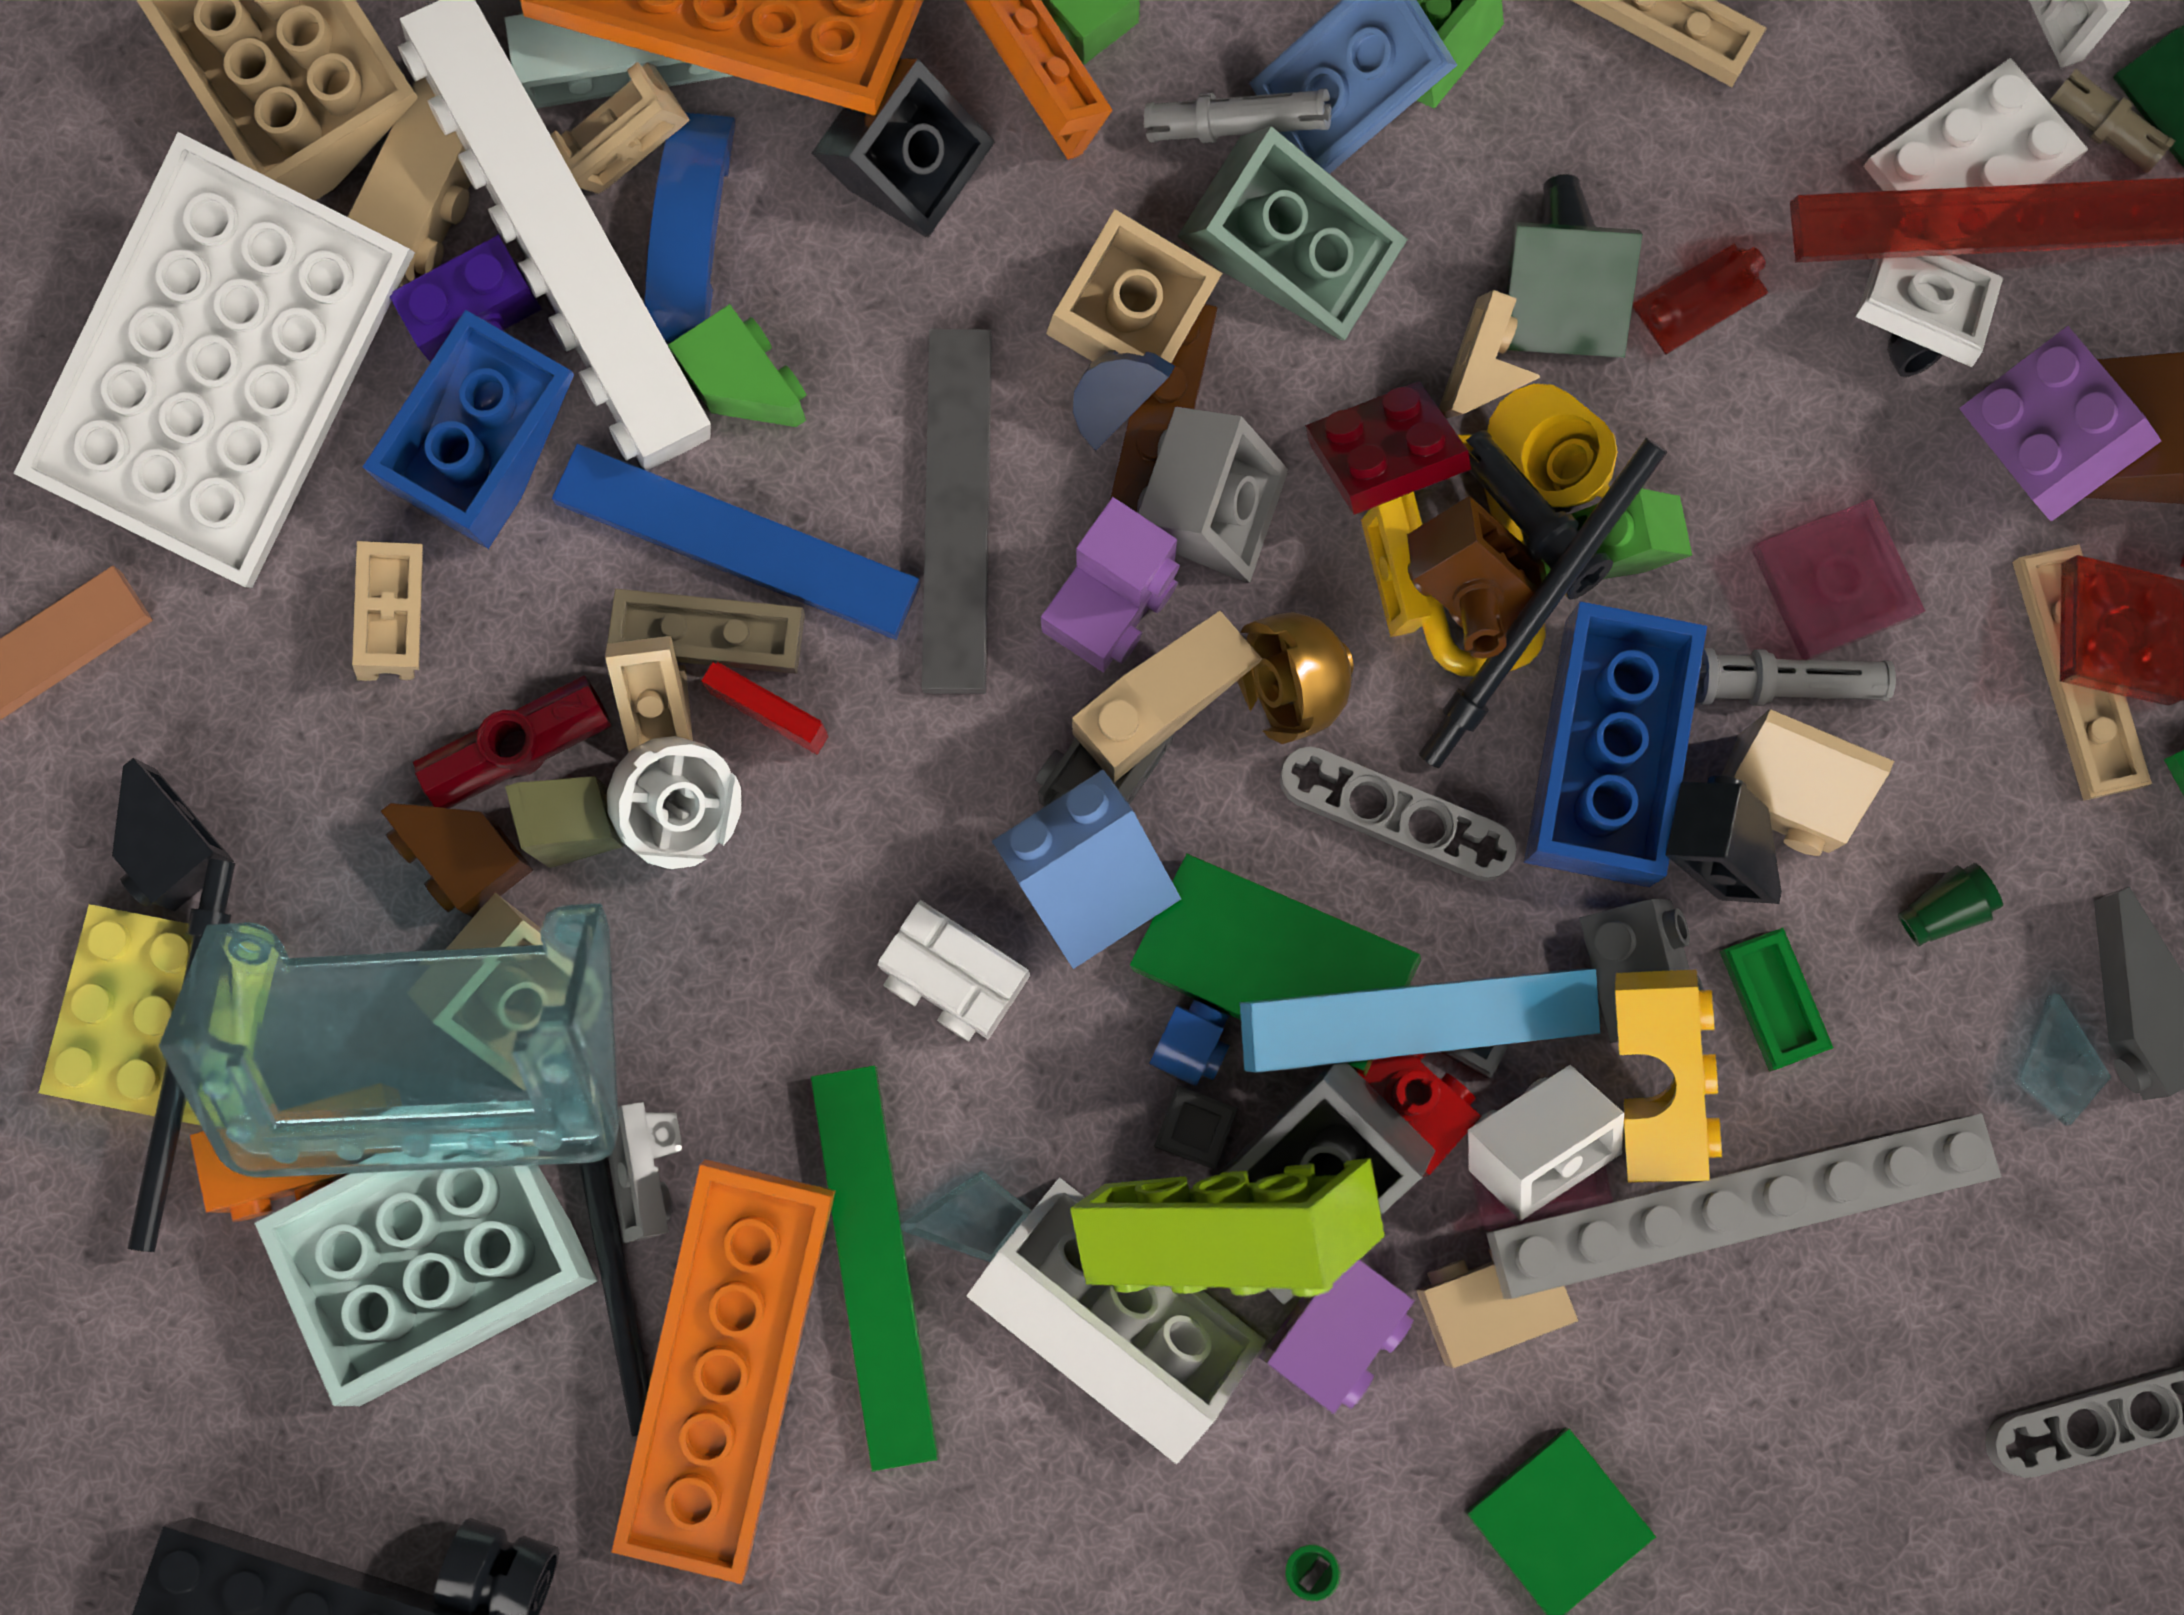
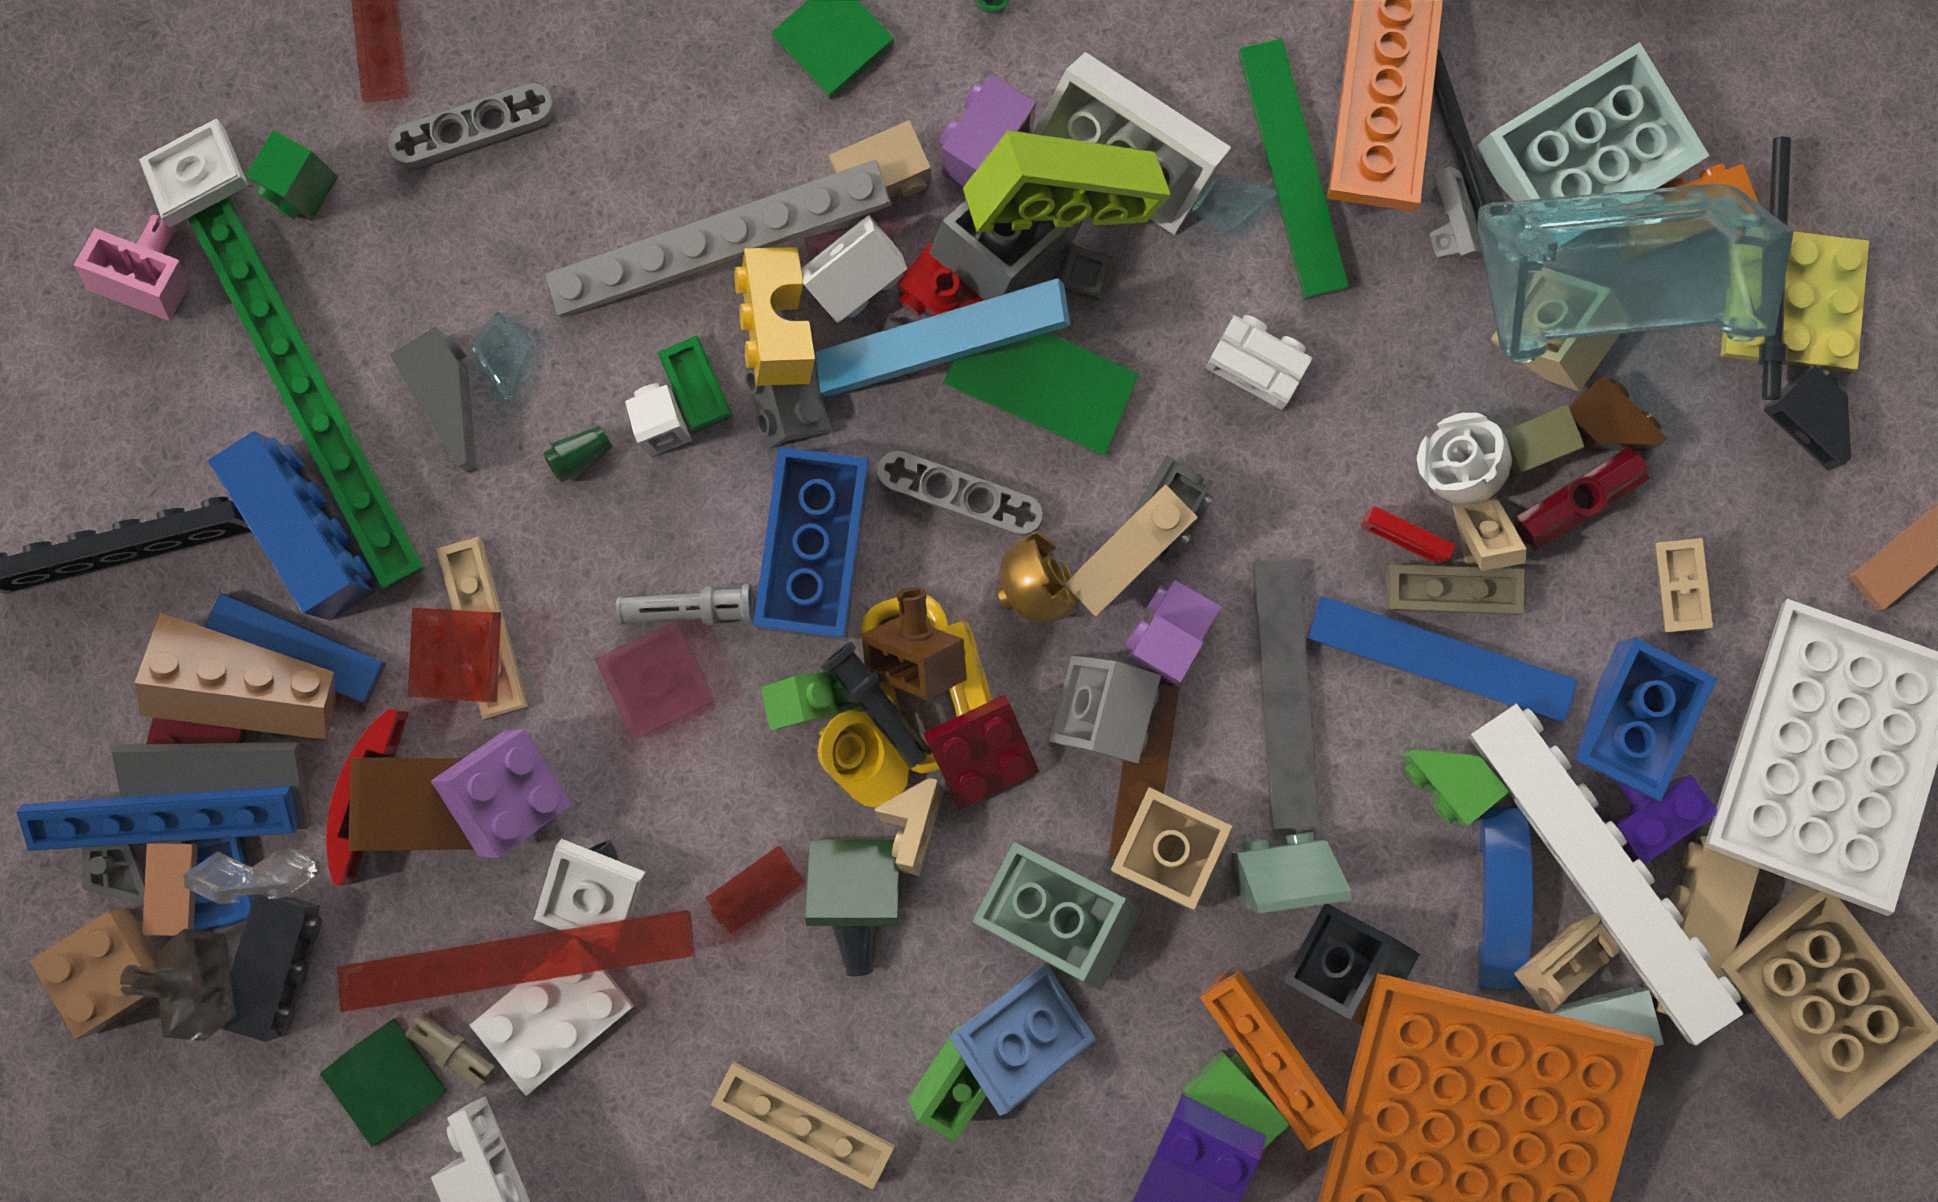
camera: 175 degrees right, 5 degrees up
(980, 243) = (1288, 874): none -> sand green slope
(1087, 868) = (1176, 425): medium blue brick -> none
(1114, 390) = (1181, 777): dark blue tile -> none
(1192, 1043) = (1093, 324): blue plate -> none
(1213, 117) = (1095, 1004): light grey pin -> none
(1468, 706) = (914, 569): black bar -> none
(1725, 841) = (738, 478): black slope -> none
(1807, 780) = (685, 523): tan slope -> none
(1840, 940) = (657, 419): none -> white slope

